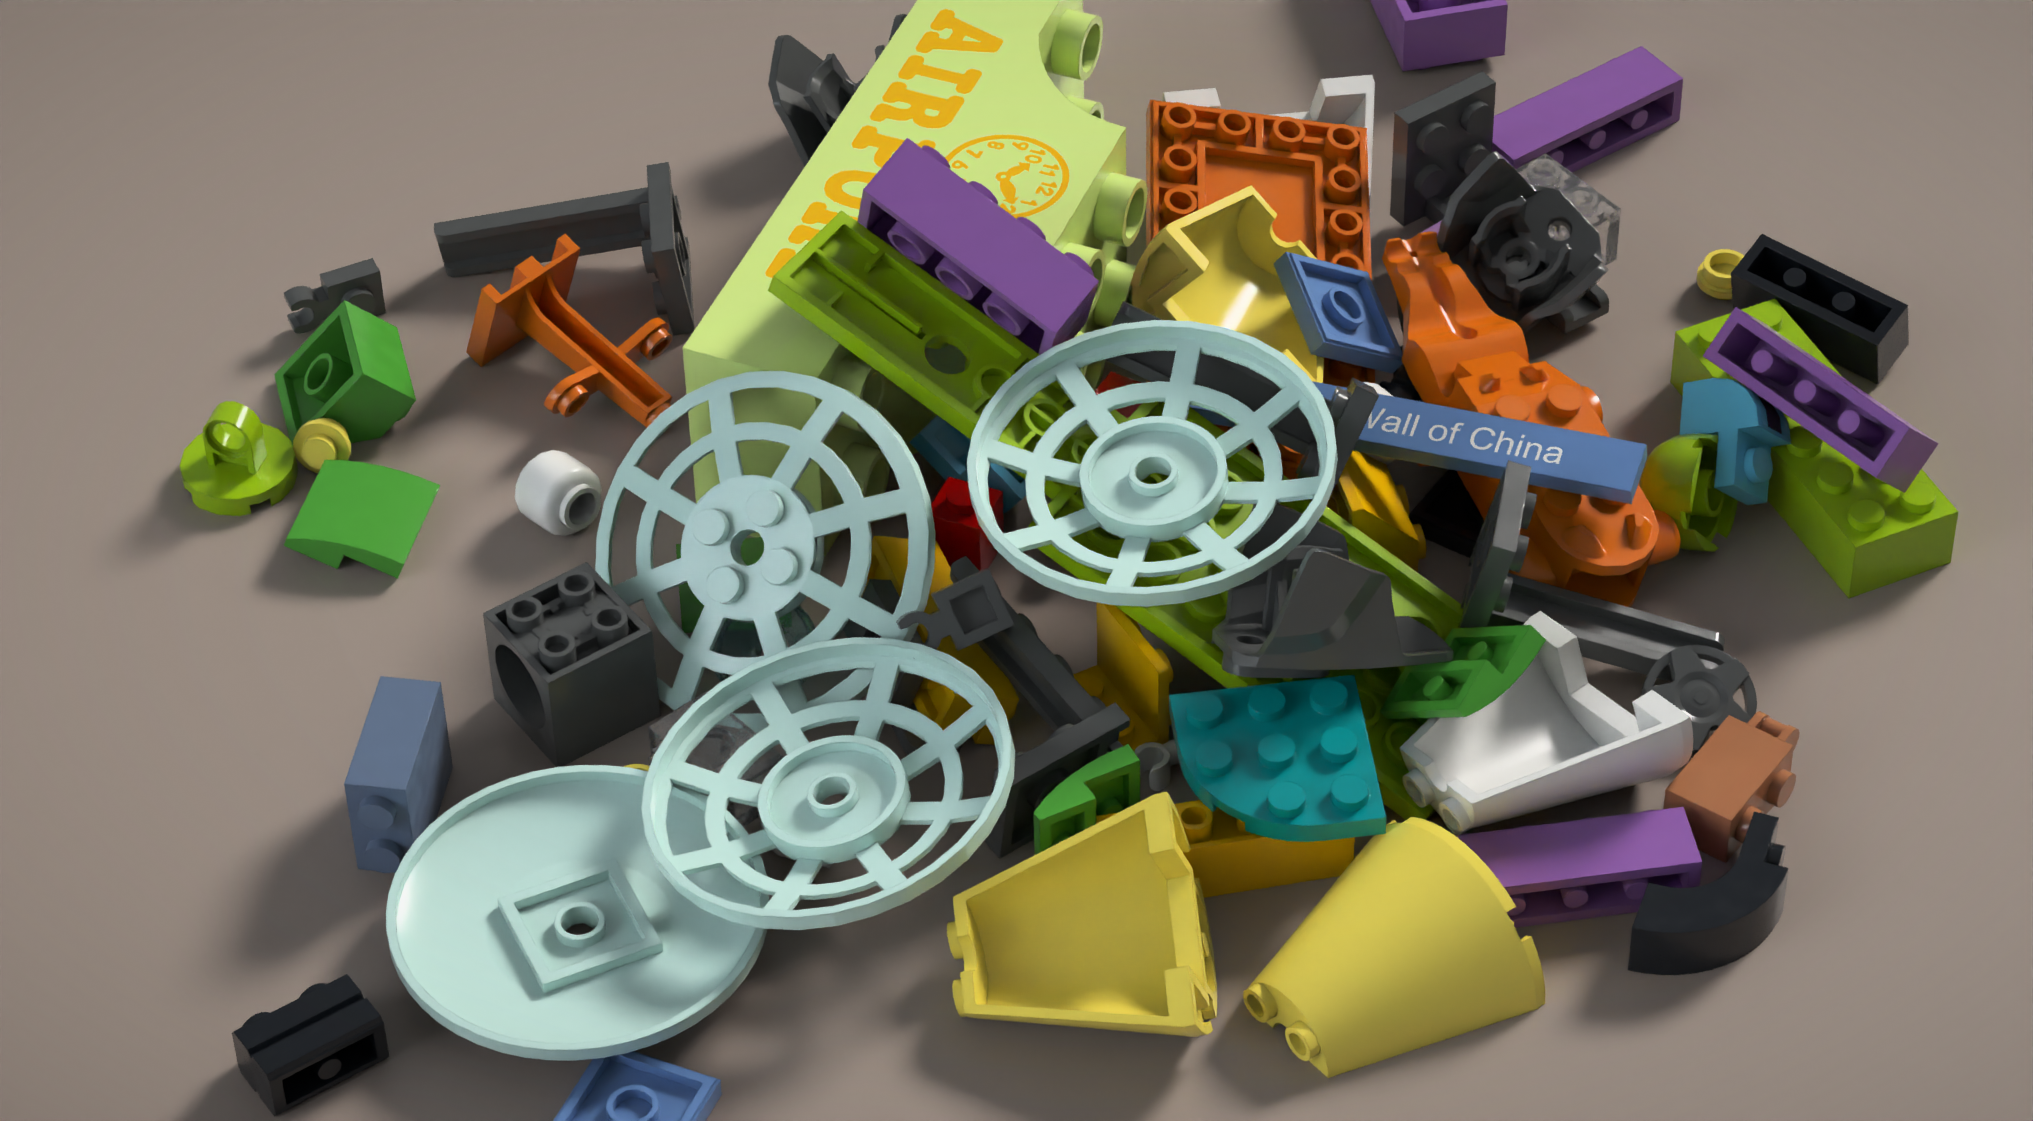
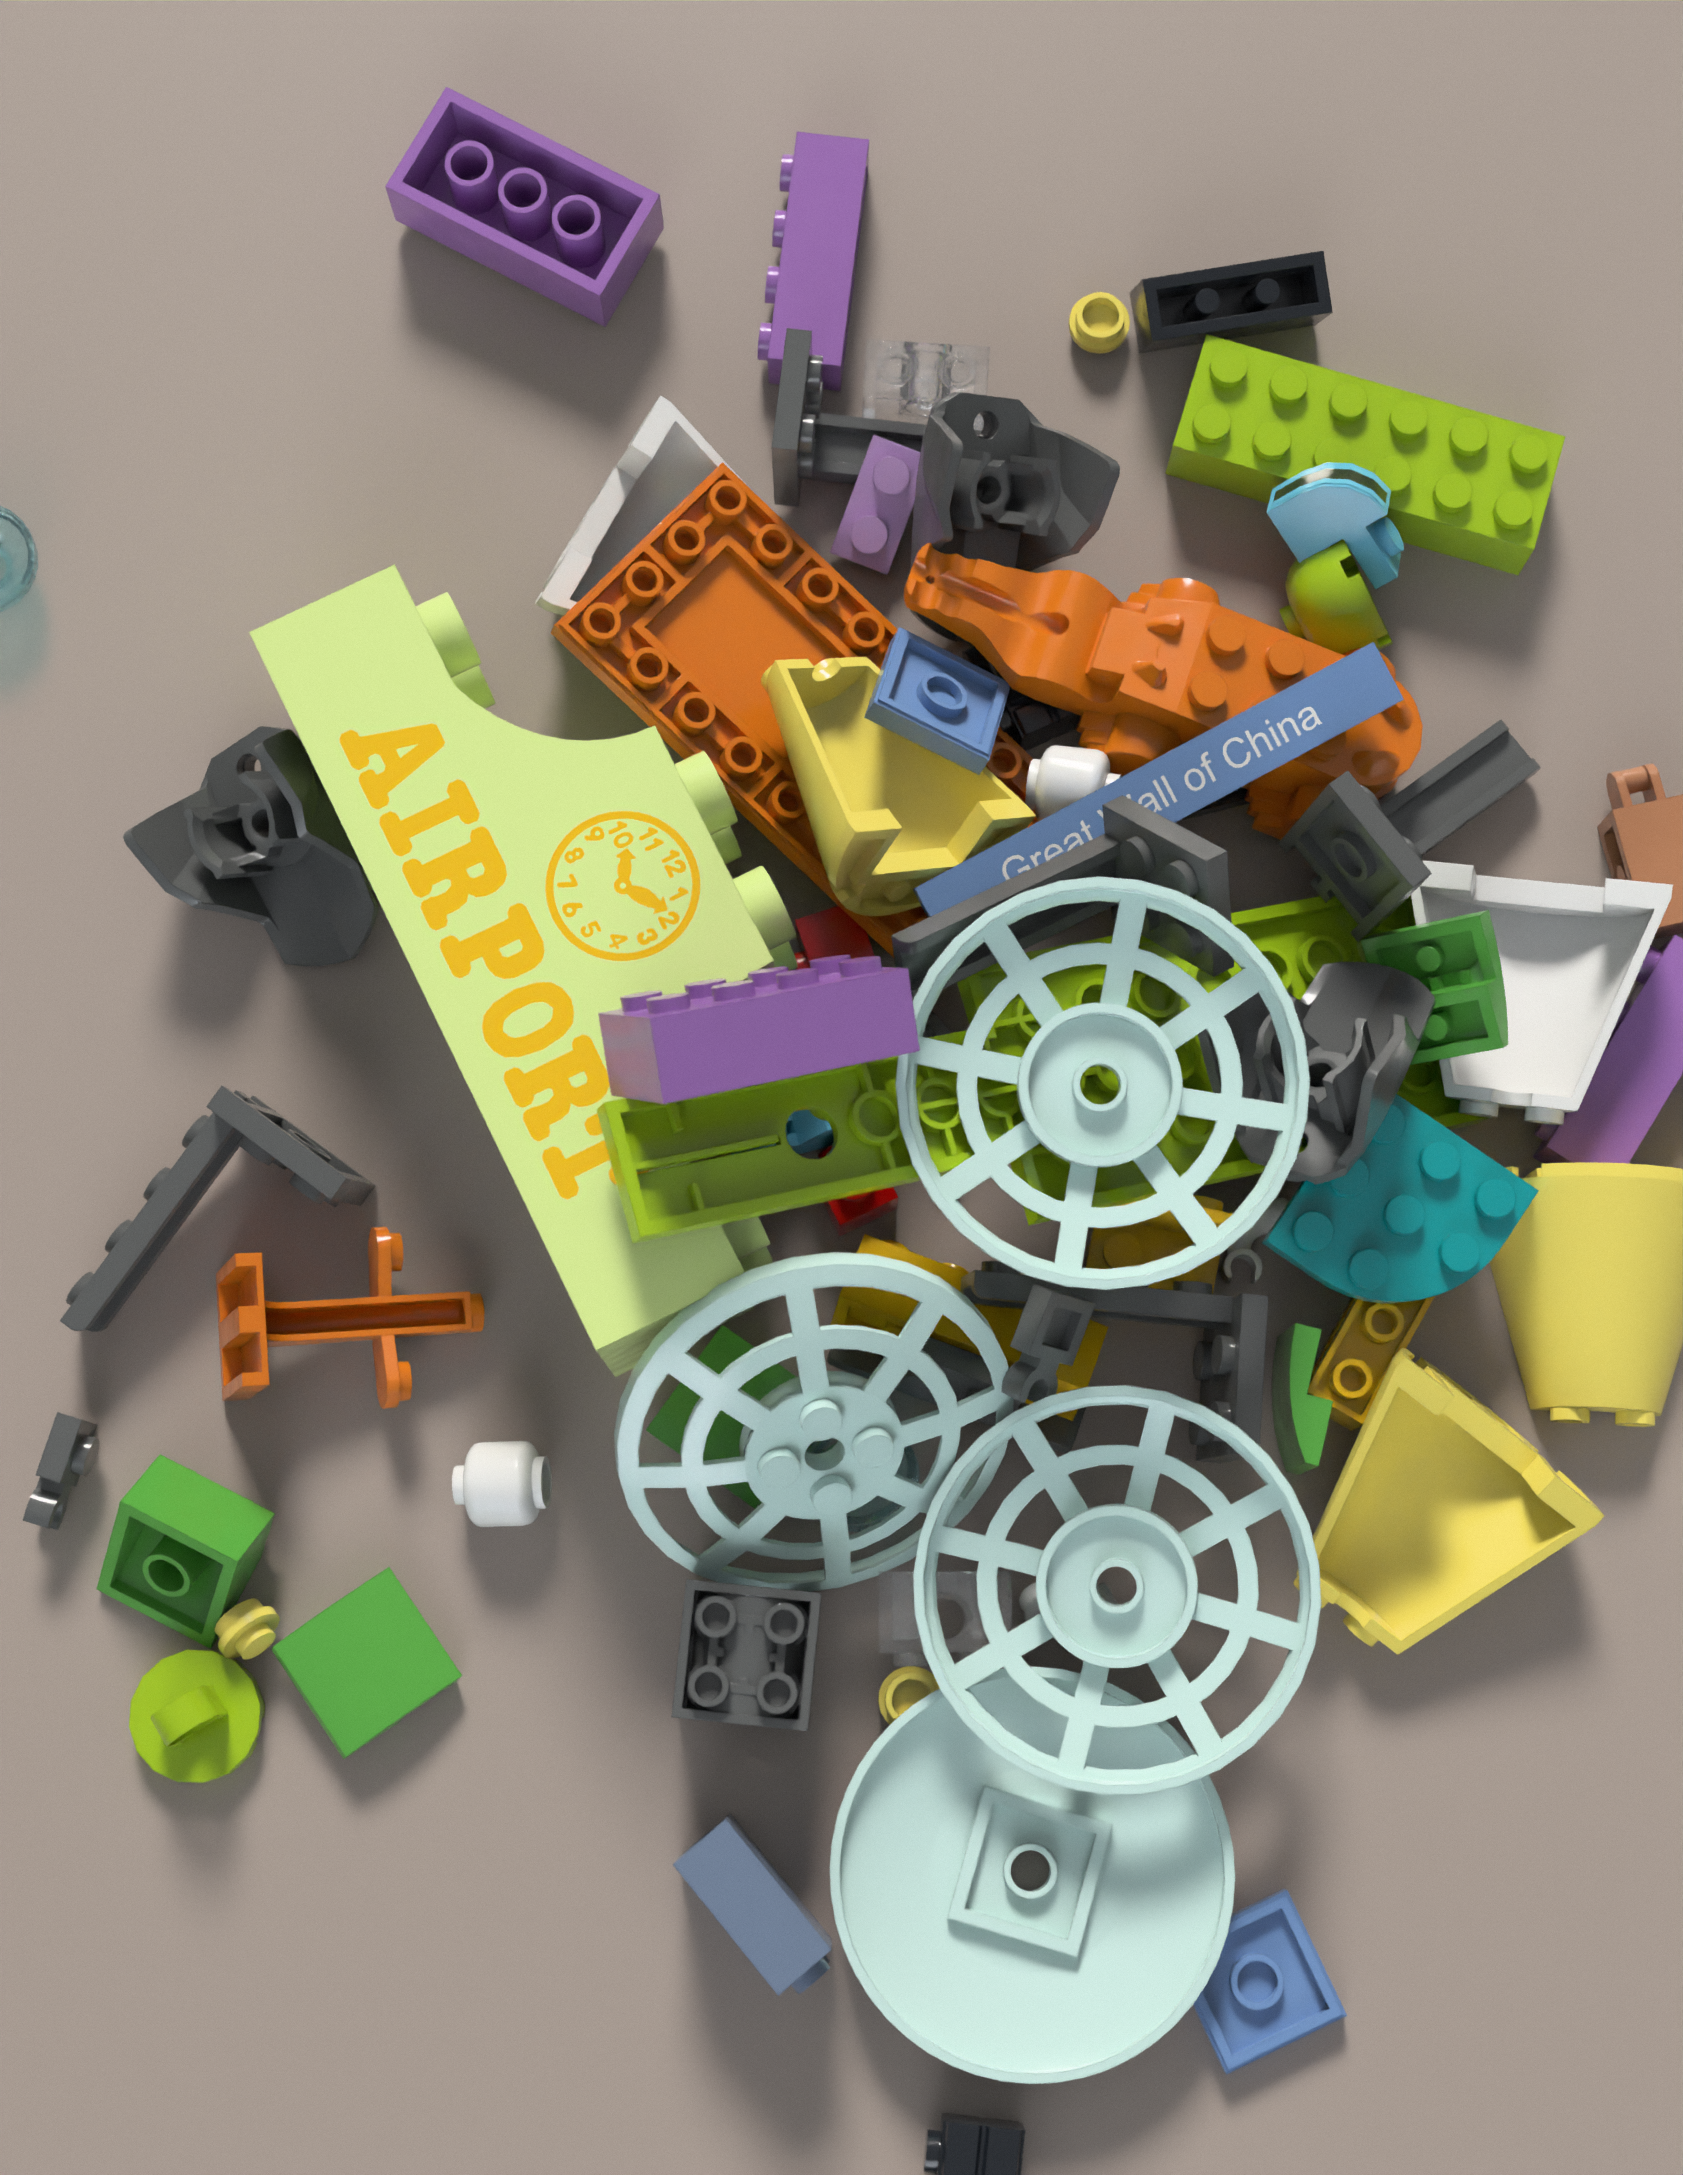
camera: 50 degrees left, 35 degrees up
(1703, 691) = (1553, 803): dark grey wheel -> none
(1820, 400) = (1406, 442): medium lavender brick -> none

